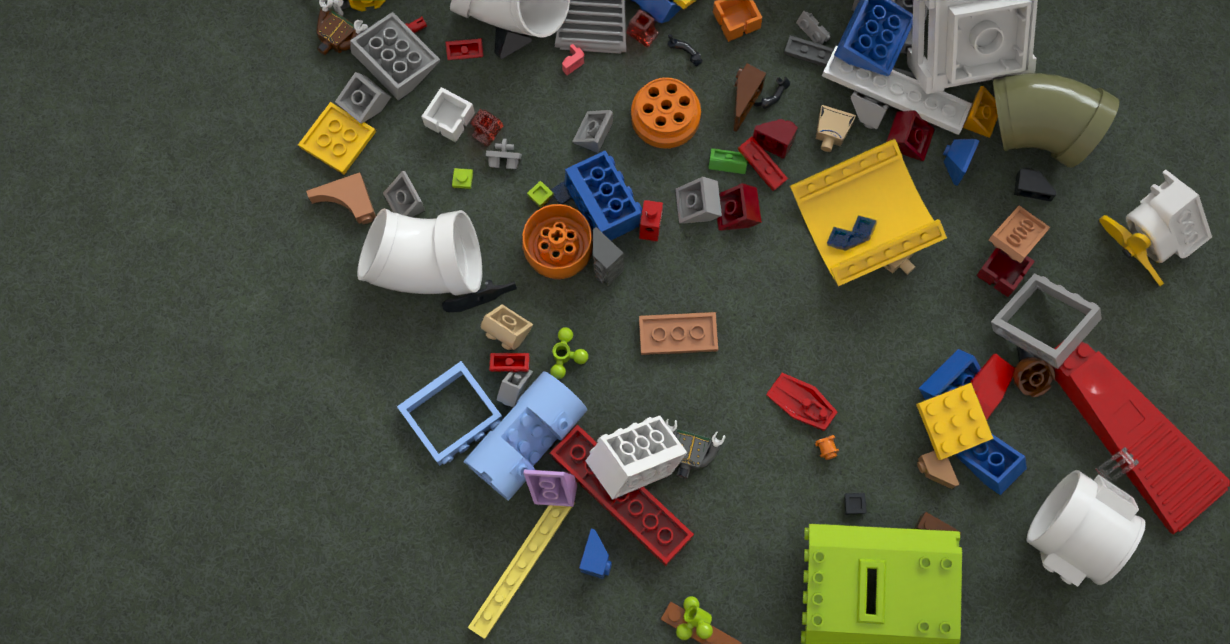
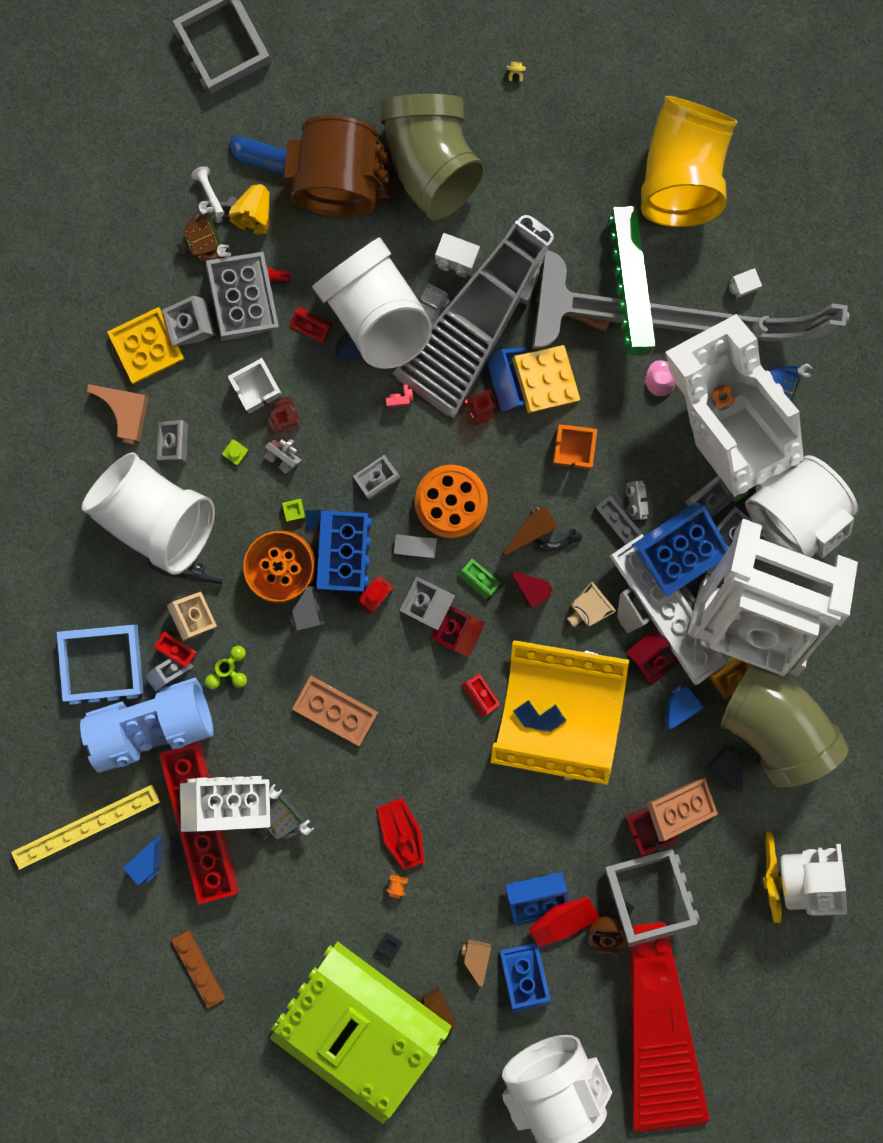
camera: 30 degrees right, 15 degrees up
(551, 487) = (143, 783): lavender slope -> none
(659, 163) = (415, 546): none -> light grey slope
(677, 44) = (503, 437): black piece -> none
(695, 617) = (196, 961): lime piece -> none
(762, 163) = (505, 602): red tile -> none
(791, 250) = (480, 695): none -> red slope
(954, 421) = (513, 934): yellow plate -> none
(1127, 458) = (624, 1047): clear tile -> none

